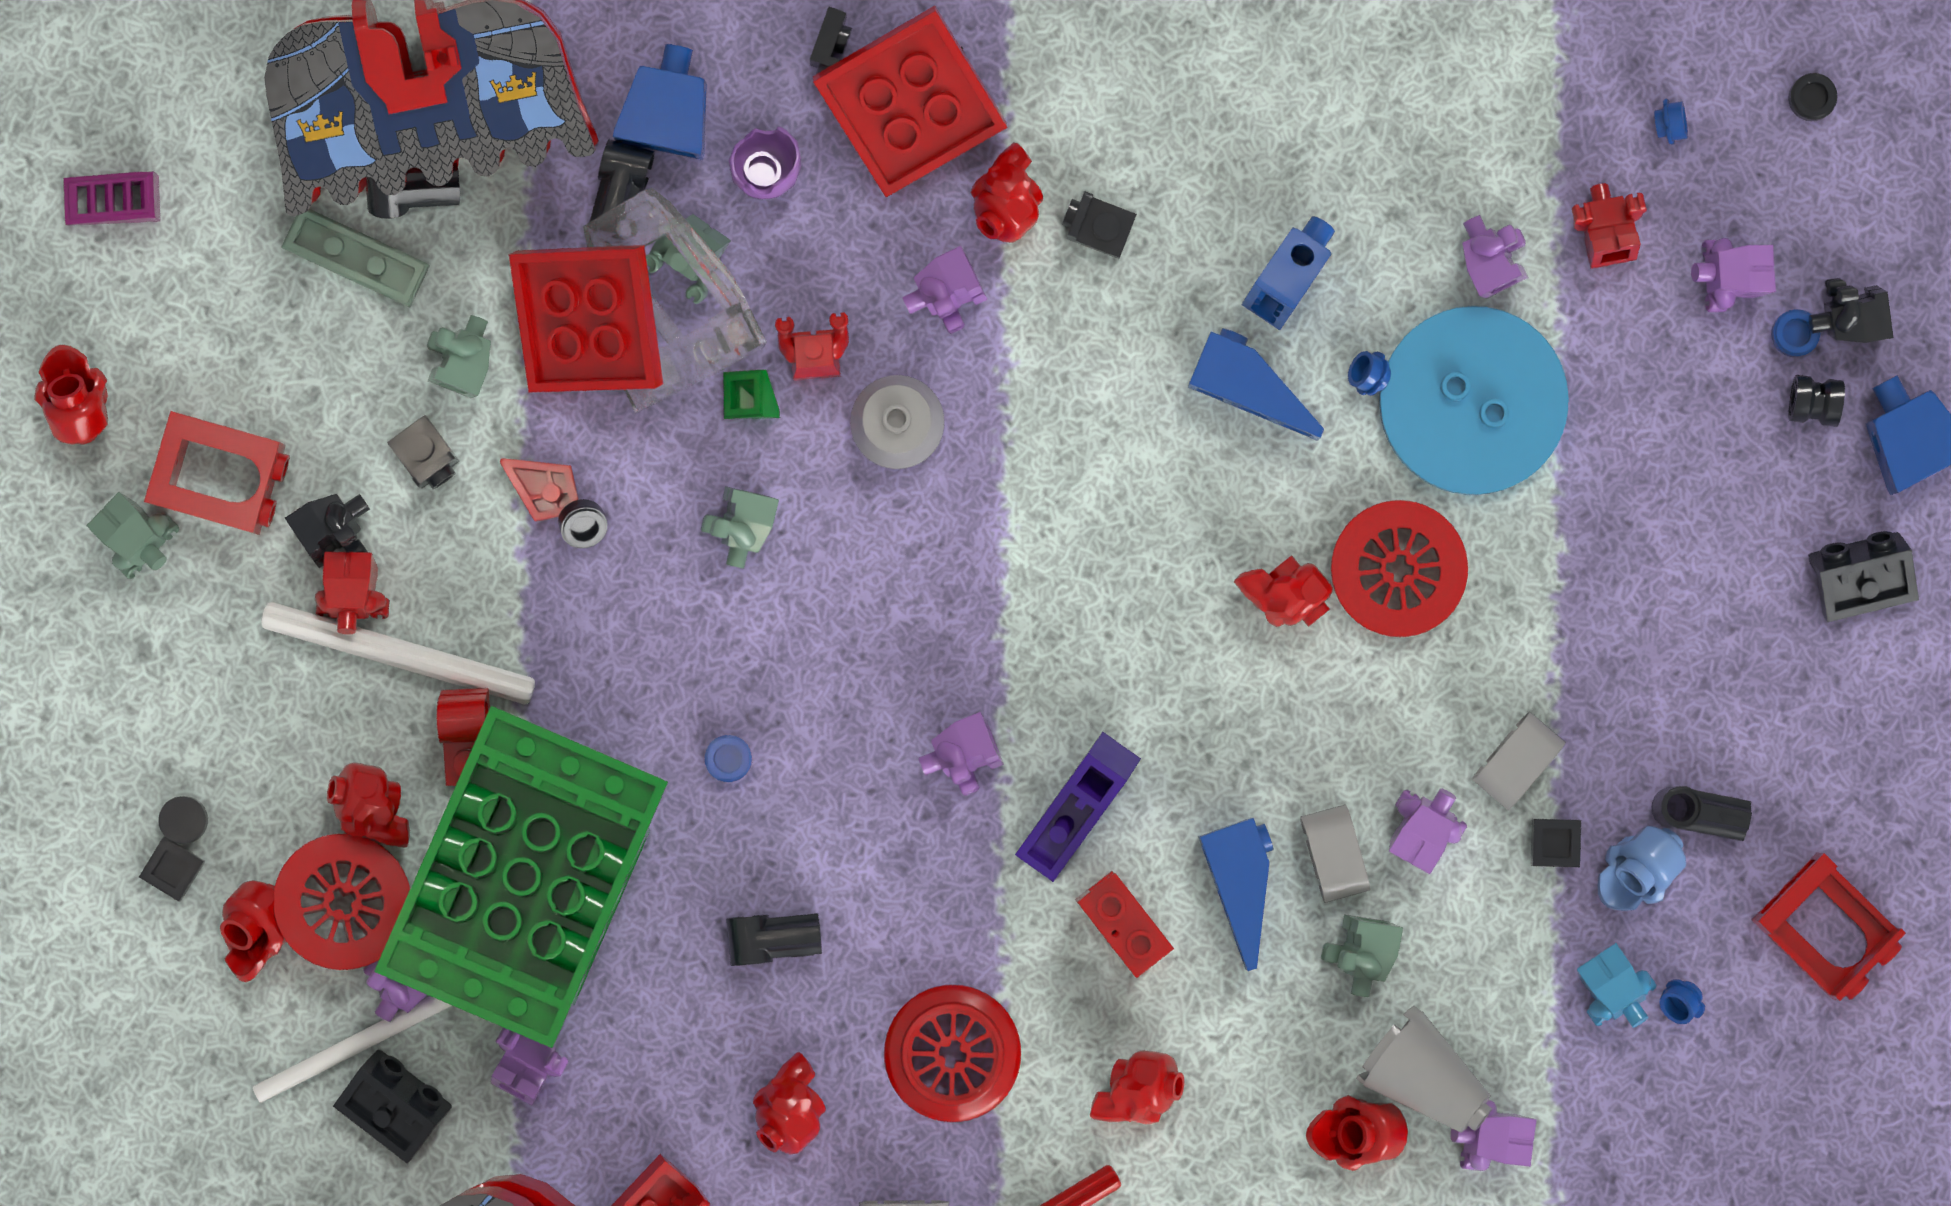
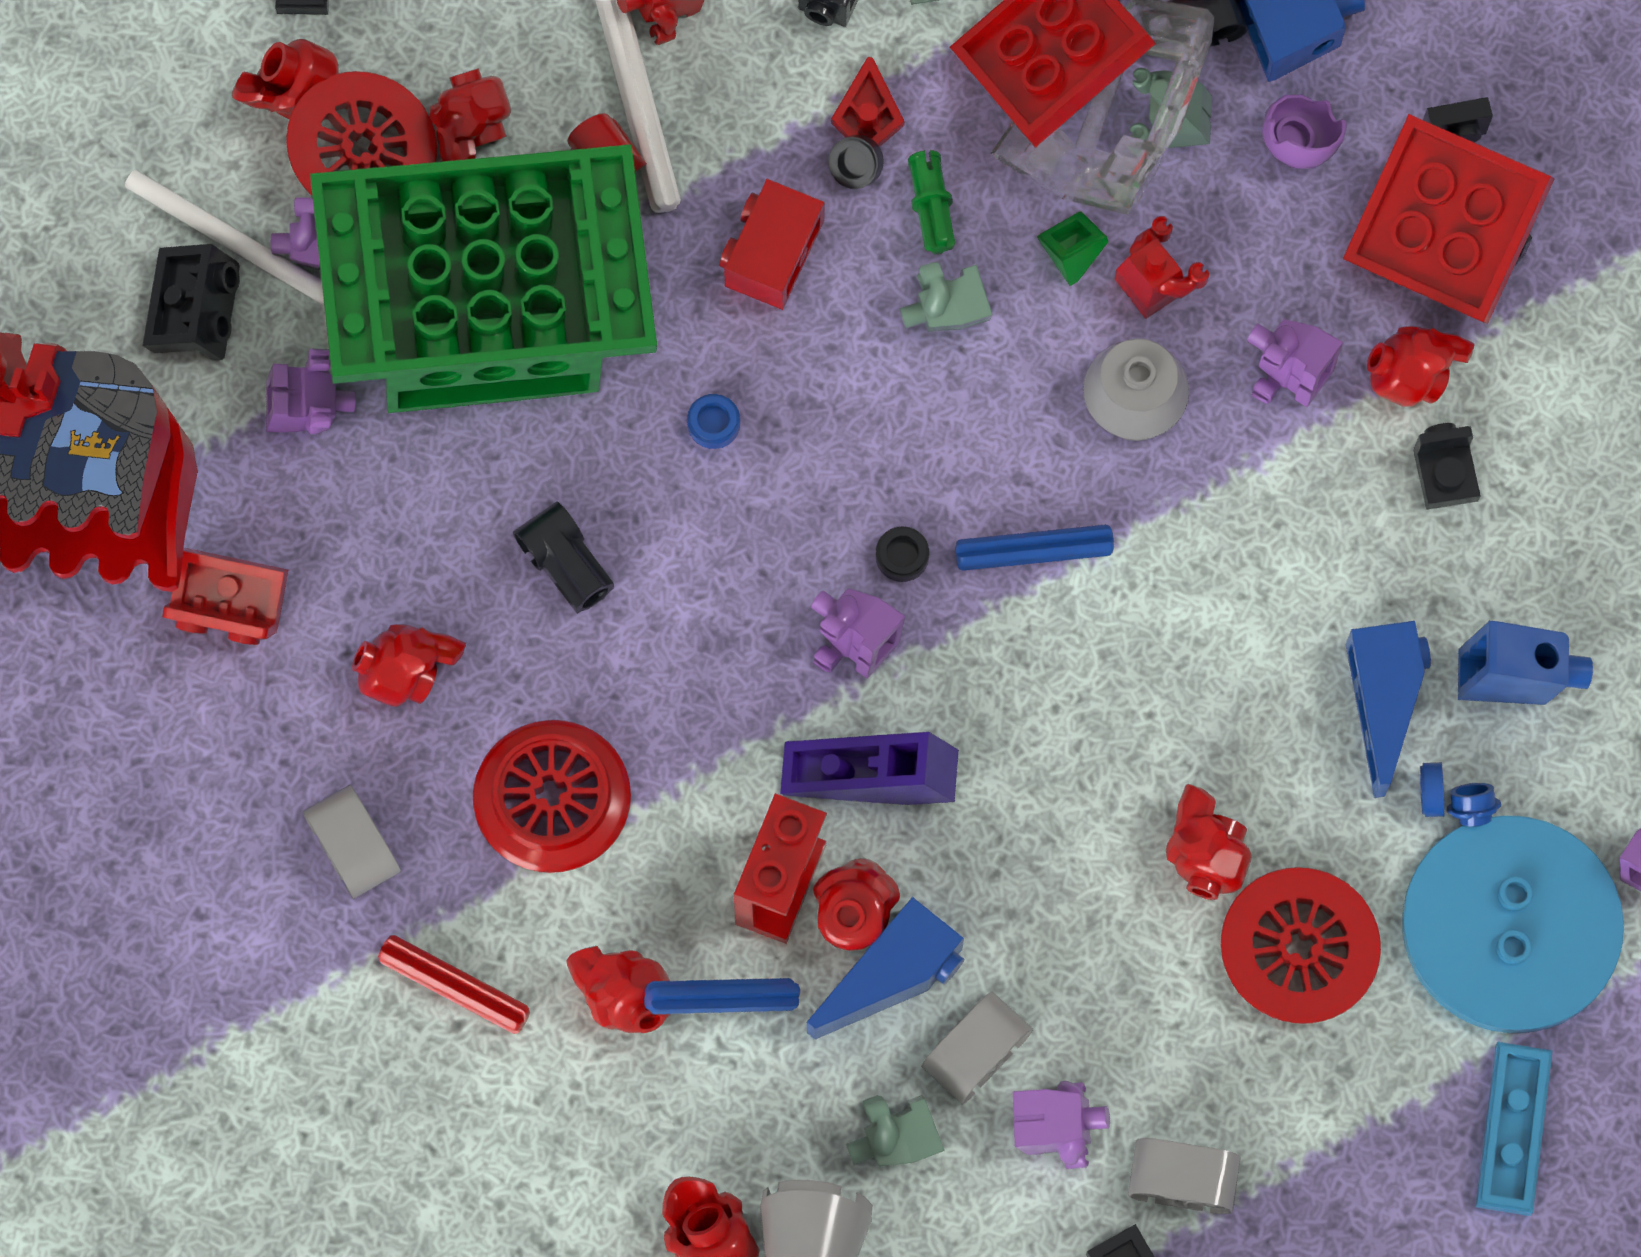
camera: 60 degrees right, 15 degrees down
(613, 629) = (773, 243): none -> red brick
(651, 485) = (931, 202): none -> green axle
(920, 678) = (902, 554): none -> black tile
(975, 575) = (1034, 547): none -> blue axle
(1175, 879) = (855, 903): none -> red head
(1190, 1021) = (721, 996): none -> blue axle
(1340, 397) = (1432, 789): none -> blue tile
(1623, 496) = (1514, 1128): none -> dark azure tile

